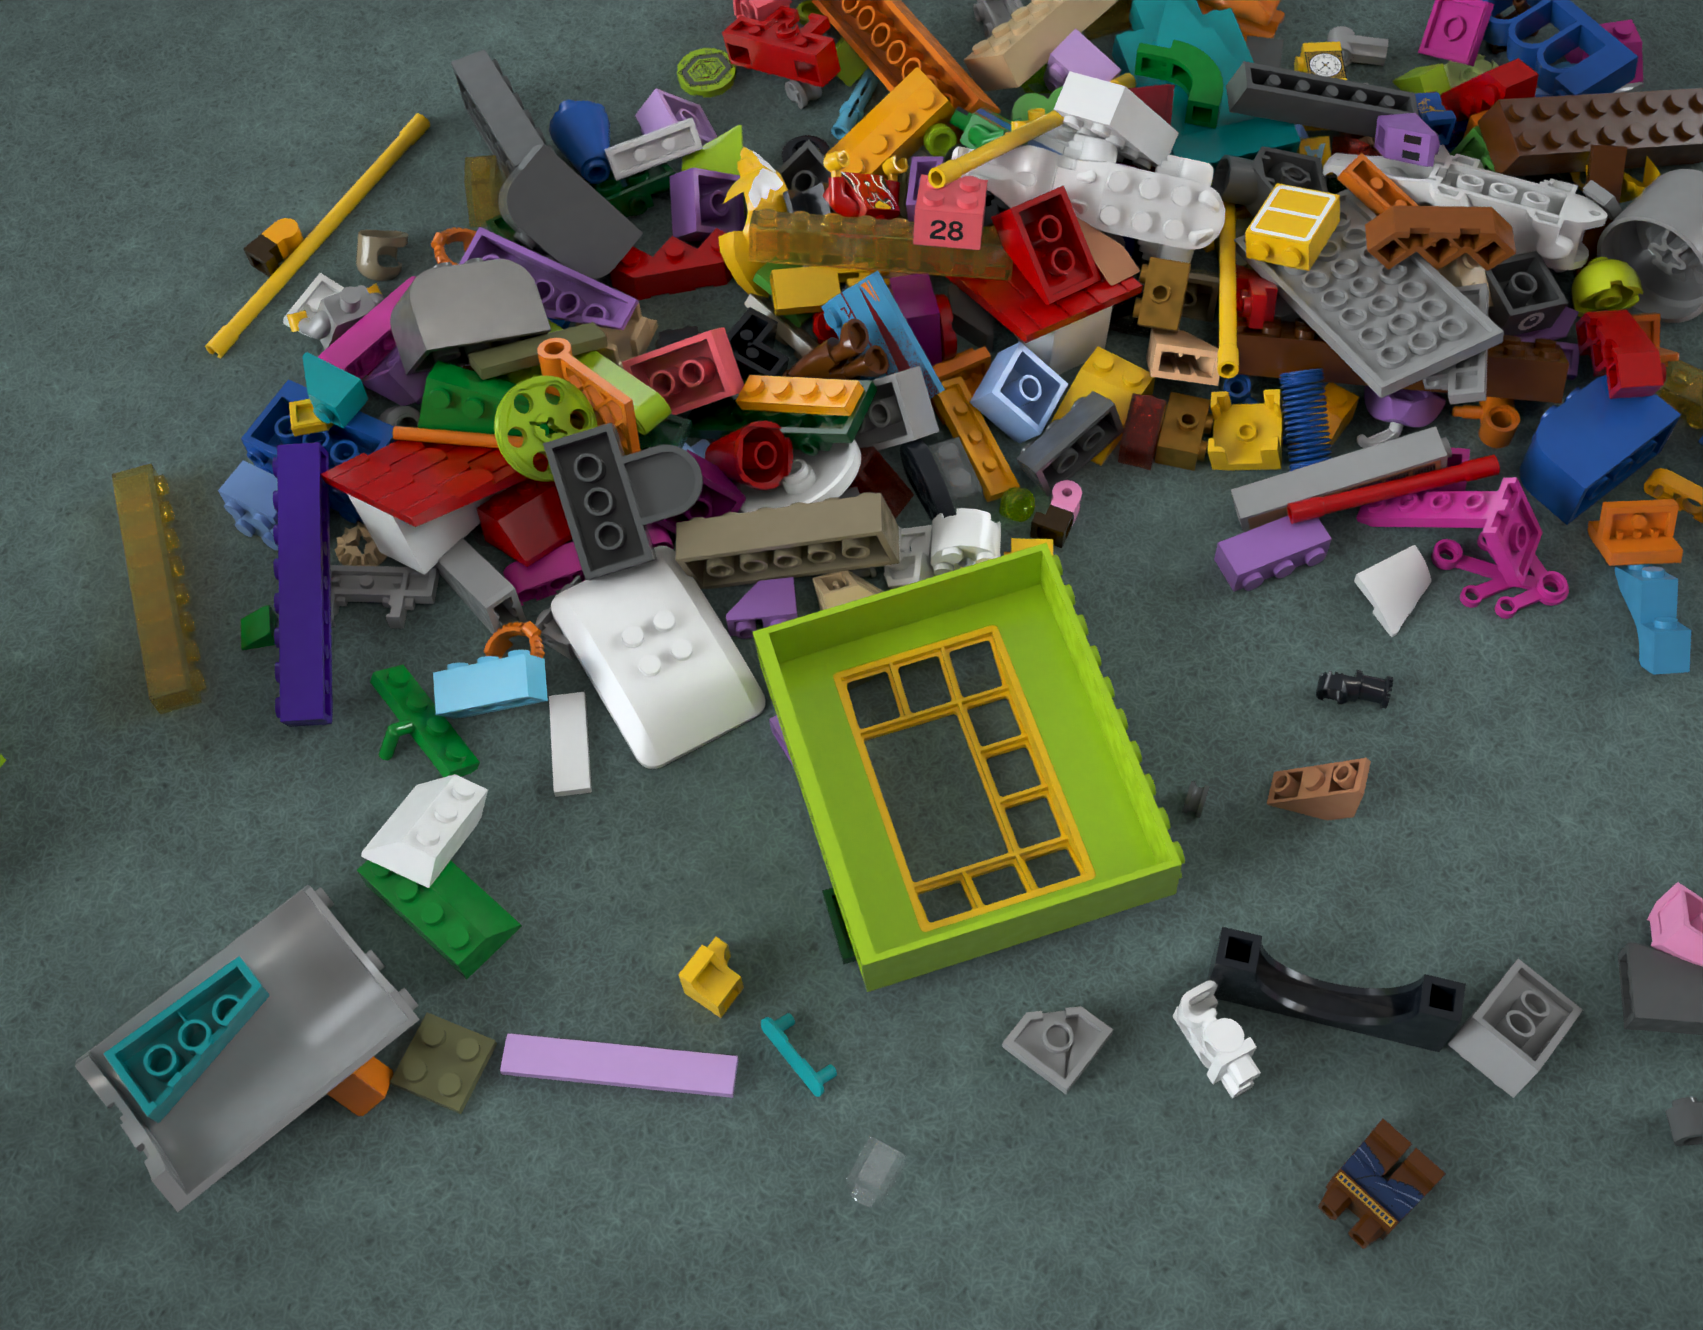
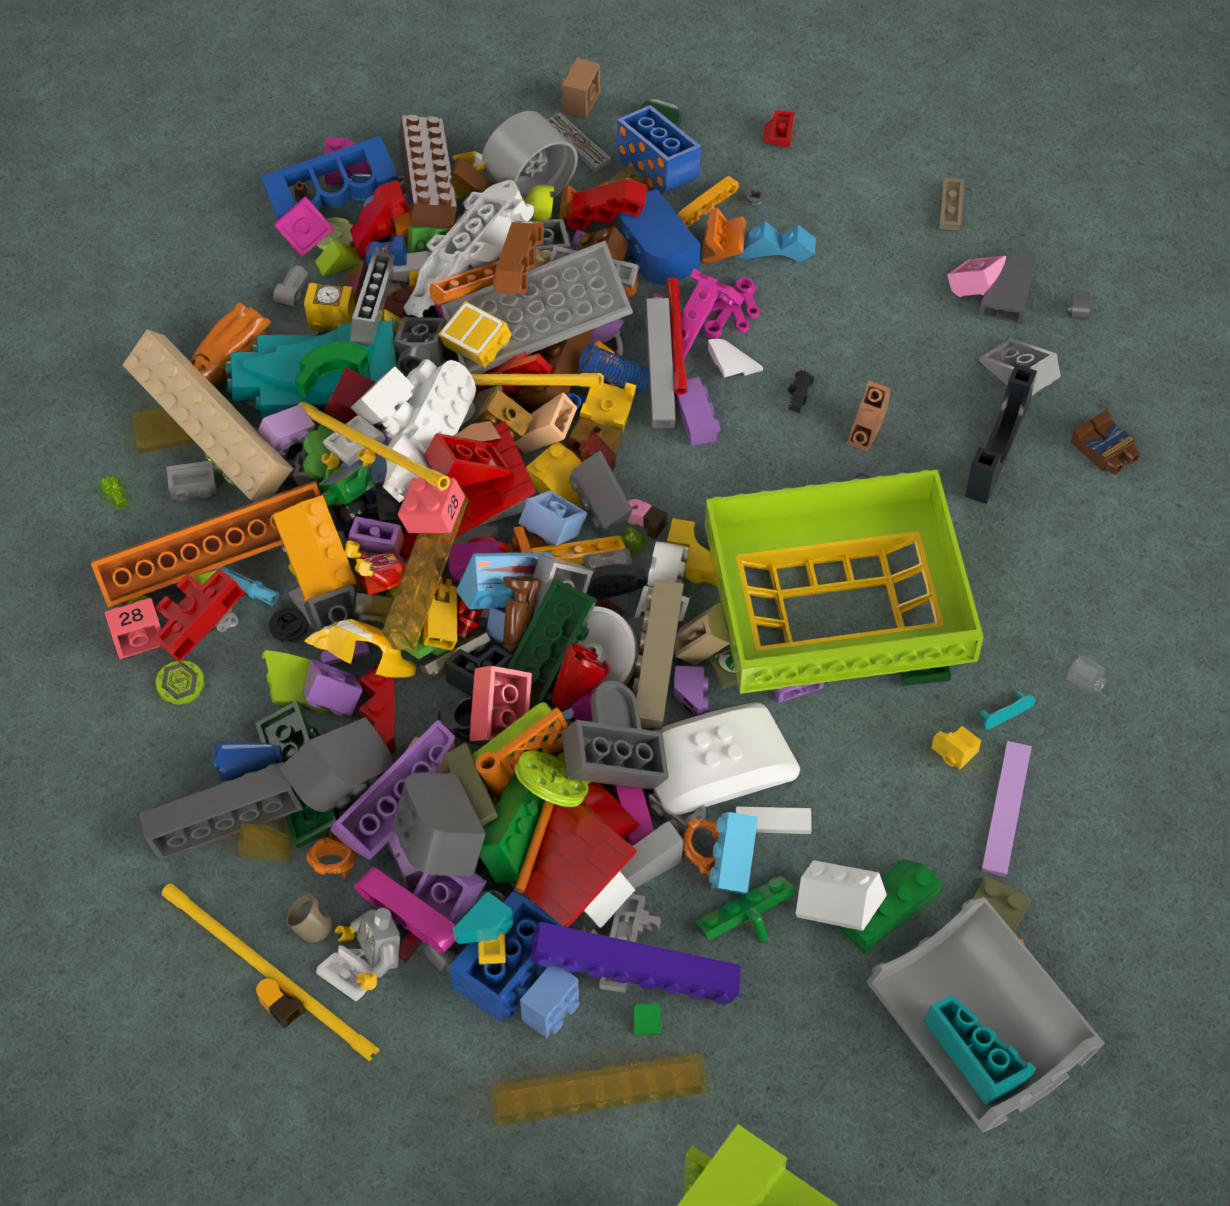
camera: 85 degrees left, 5 degrees down
(653, 148) = (272, 710): white tile -> none
(666, 109) = (235, 704): lavender slope -> none
(800, 395) = (545, 629): light orange plate -> none
(939, 139) = (337, 517): lime tile -> none
(1058, 1043) = (1012, 576): light grey plate -> none
(1217, 1041) = (1027, 495): white hips -> none
(1406, 139) = (414, 263): medium lavender slope -> none
(1603, 199) = (491, 180): light grey tile -> none

